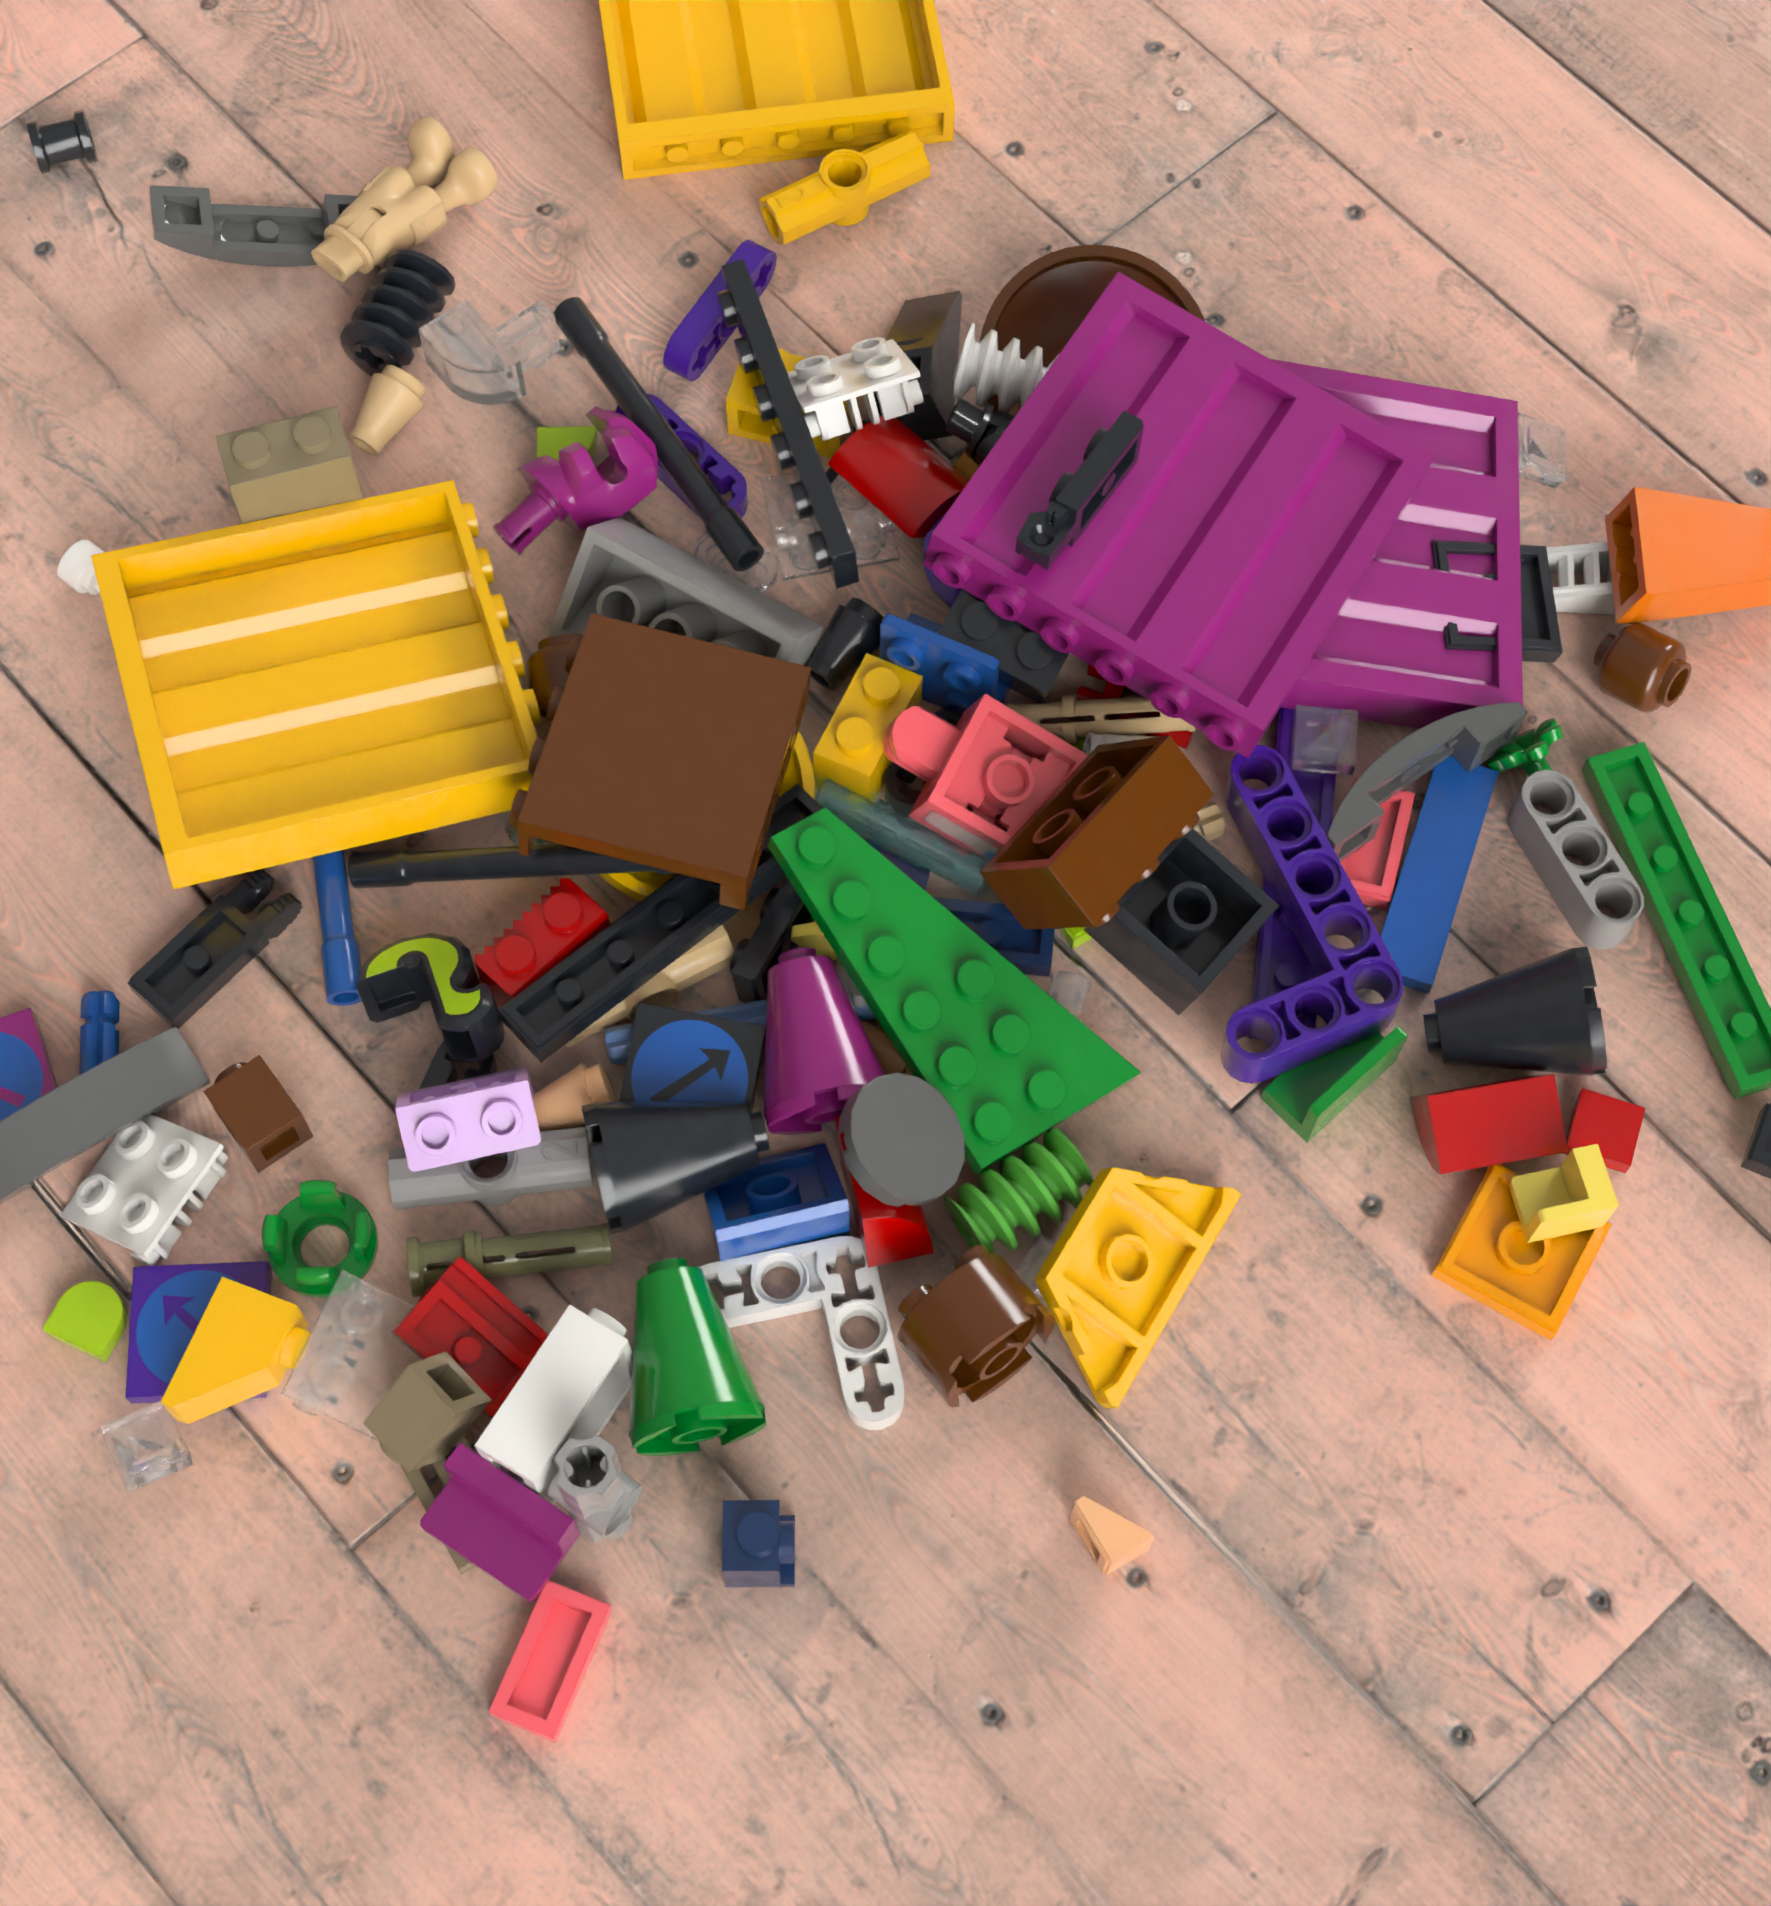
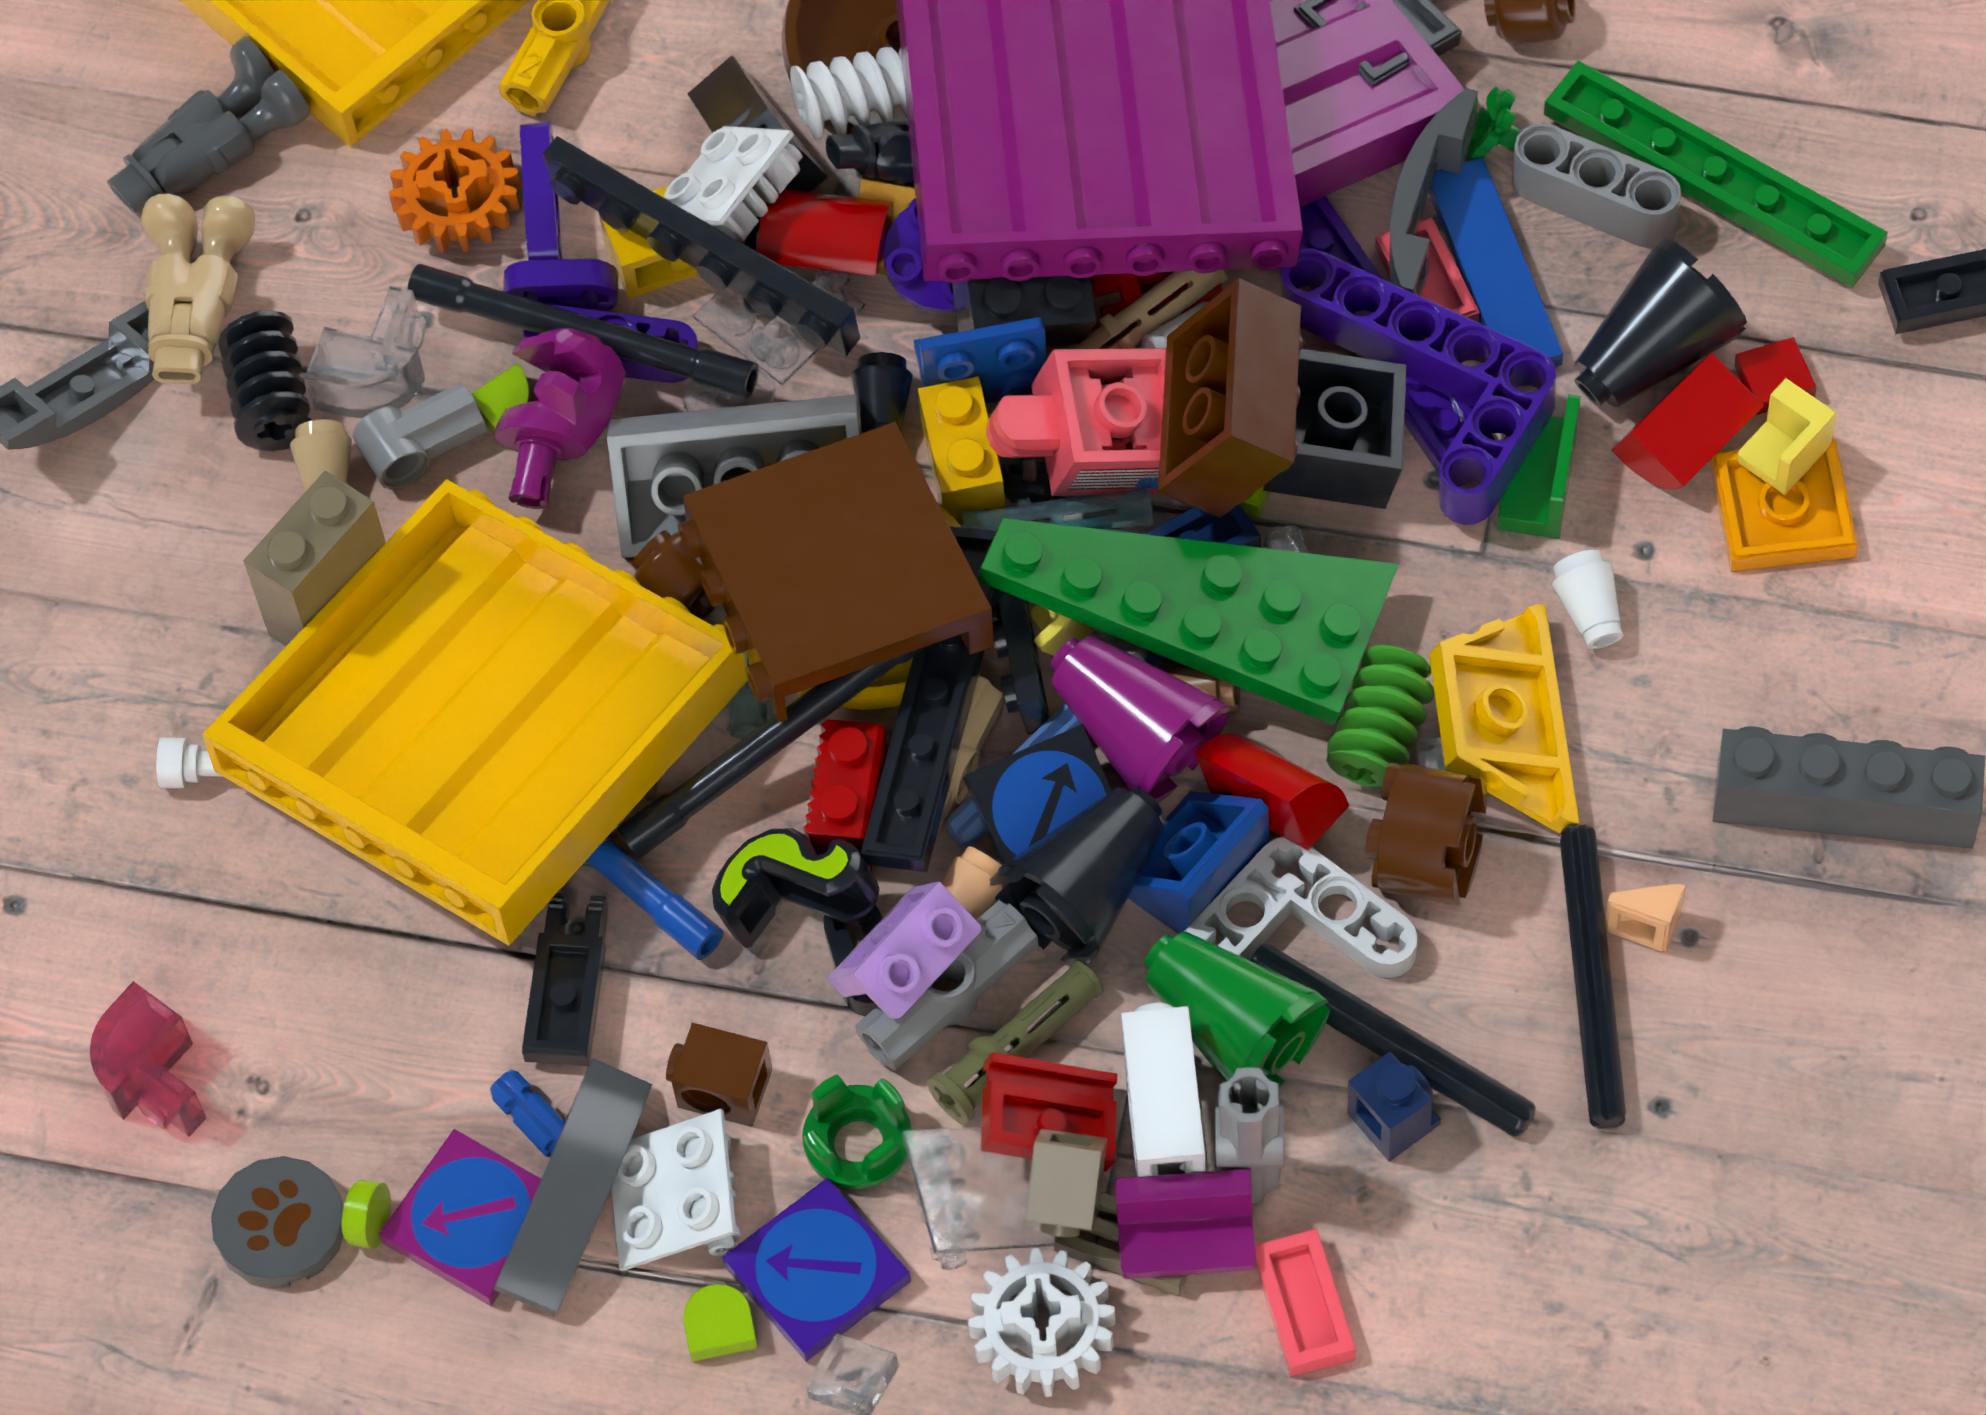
camera: 30 degrees left, 5 degrees down
(235, 1352) = (874, 1244): yellow slope -> none
(311, 1540) = (1072, 1319): none -> white gear
(459, 430) = (404, 442): none -> light grey piece
(524, 98) = (205, 131): none -> dark grey piece
(662, 258) = (425, 190): none -> orange gear
(679, 386) = (565, 282): none -> dark purple beam
(809, 1485) = (1385, 1034): none -> black axle
(902, 1140) = (1269, 725): dark grey tile -> none
(1020, 1555) = (1592, 977): none -> black axle
(1083, 494) = (1021, 143): black hinge -> none
(1285, 1214) = (1589, 596): none -> white cone
(1324, 740) = (1334, 220): clear tile -> none
(1373, 1550) = (1849, 787): none -> dark grey brick

